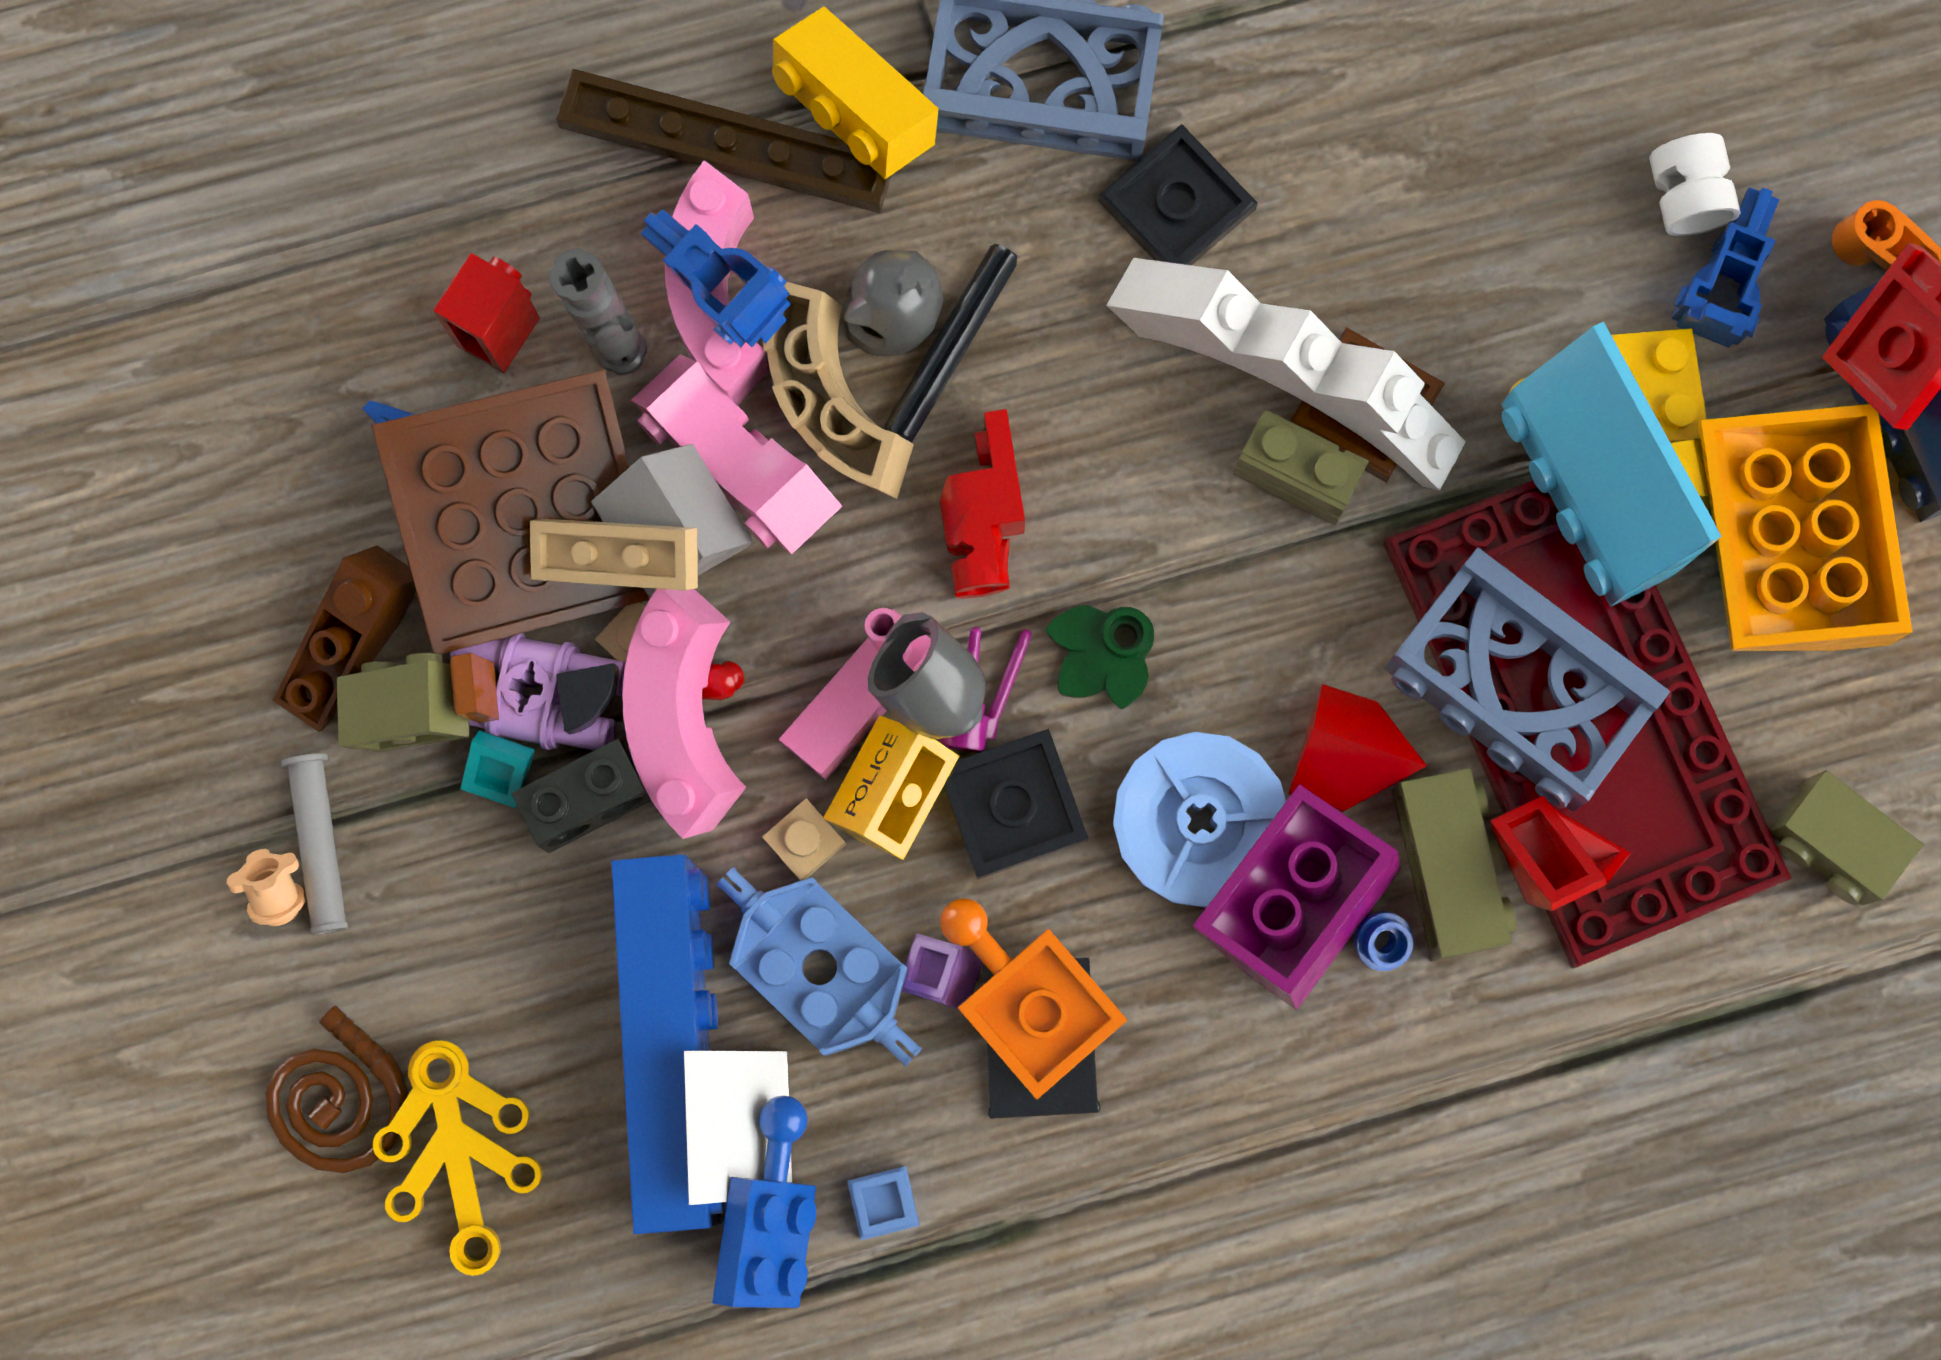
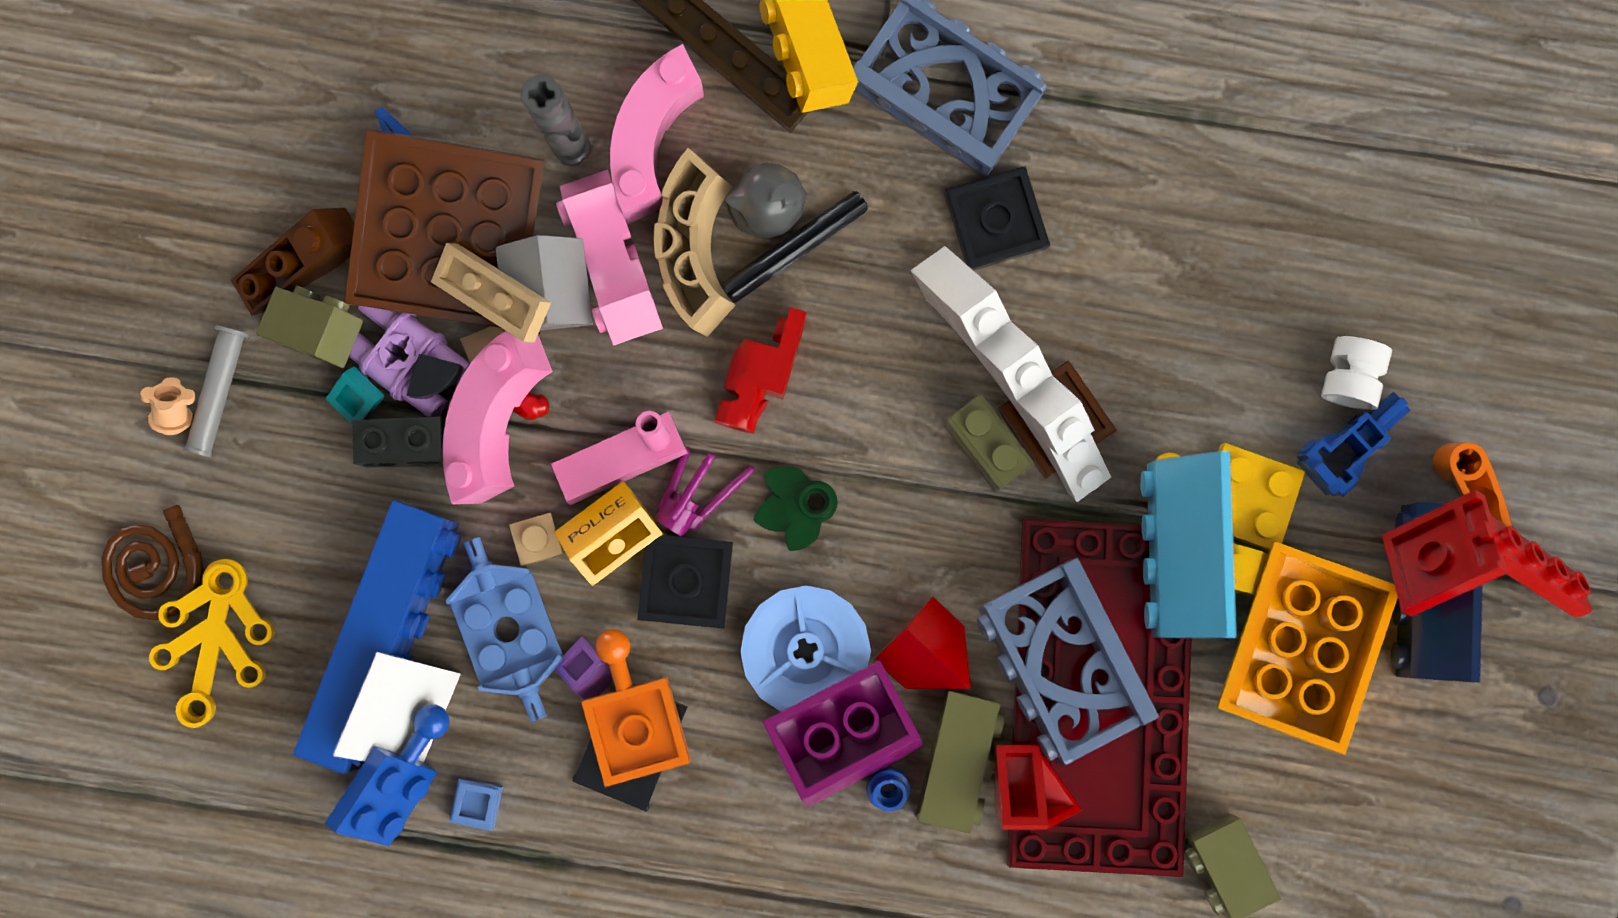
camera: 20 degrees right, 5 degrees up
(474, 688) = (360, 338): dark orange tile -> none
(488, 311) = (489, 81): red brick -> none
(702, 266) = (644, 119): blue piece -> none
(942, 694) = (662, 490): dark grey piece -> none

